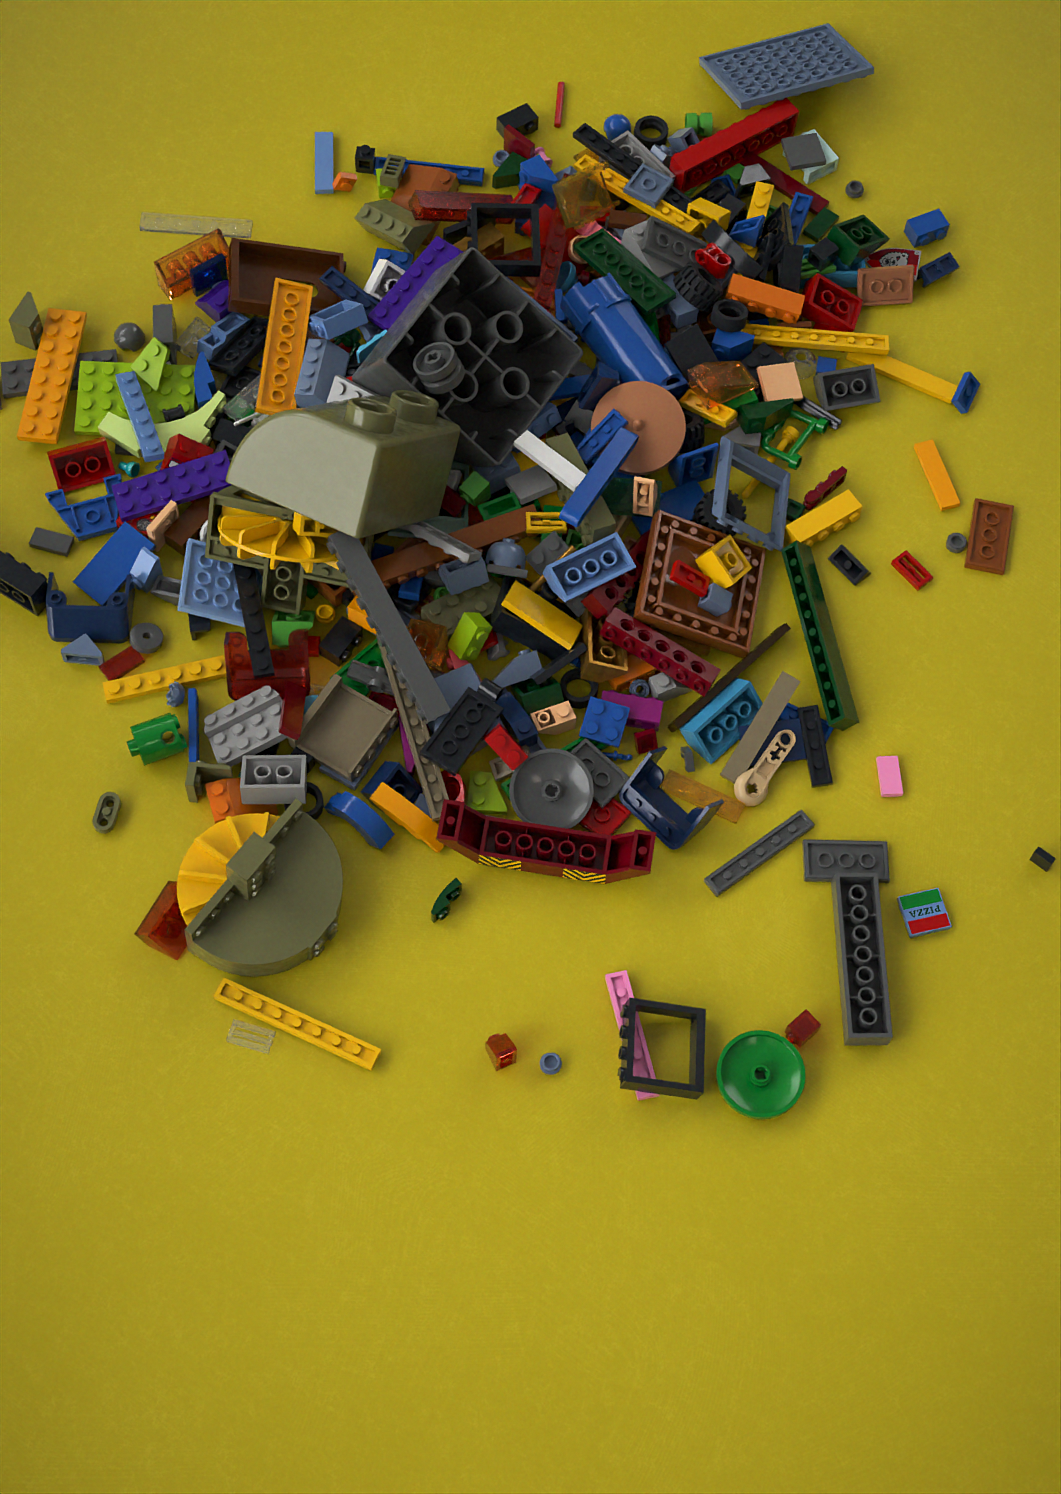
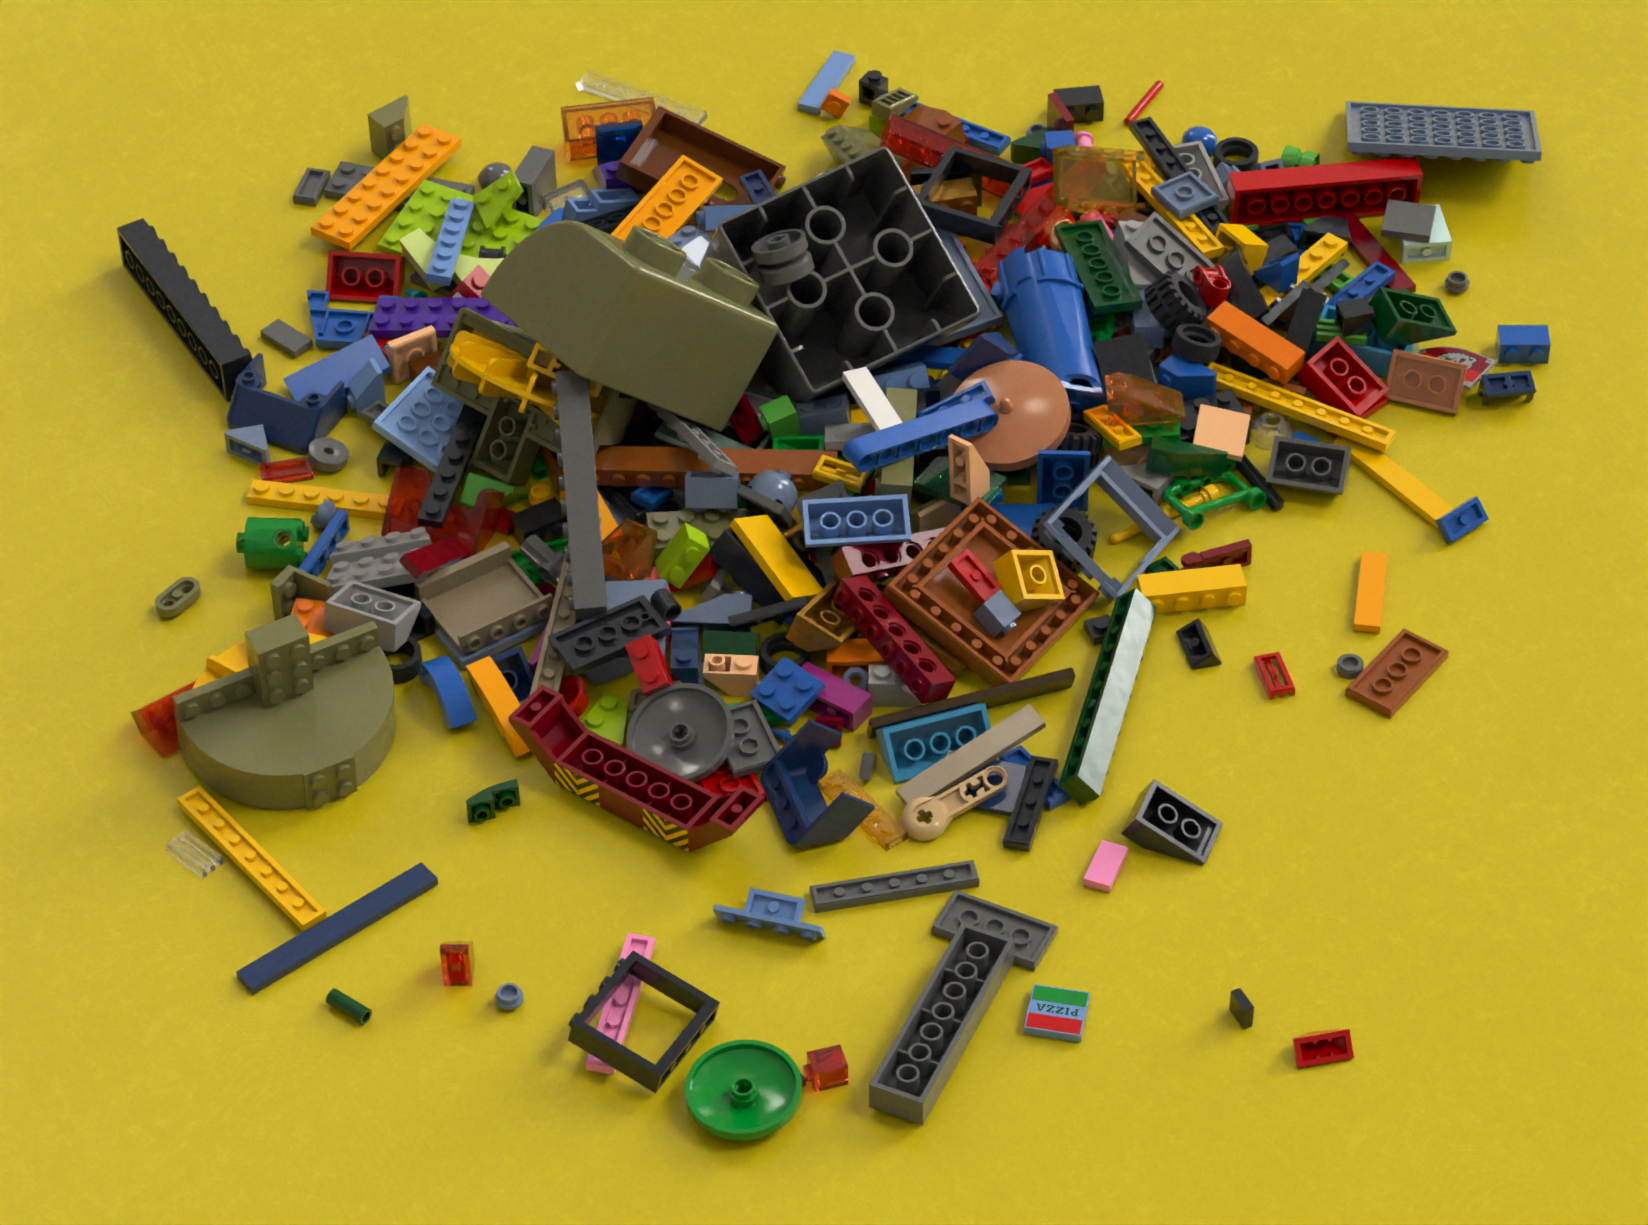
camera: 30 degrees right, 20 degrees down
(393, 1057) = (336, 928): none -> dark blue tile
(441, 1121) = (348, 1006): none -> dark green hinge
(693, 912) = (772, 911): none -> medium blue bracket
(777, 577) = (1096, 628): none -> black plate
(916, 726) = (1171, 825): none -> black slope

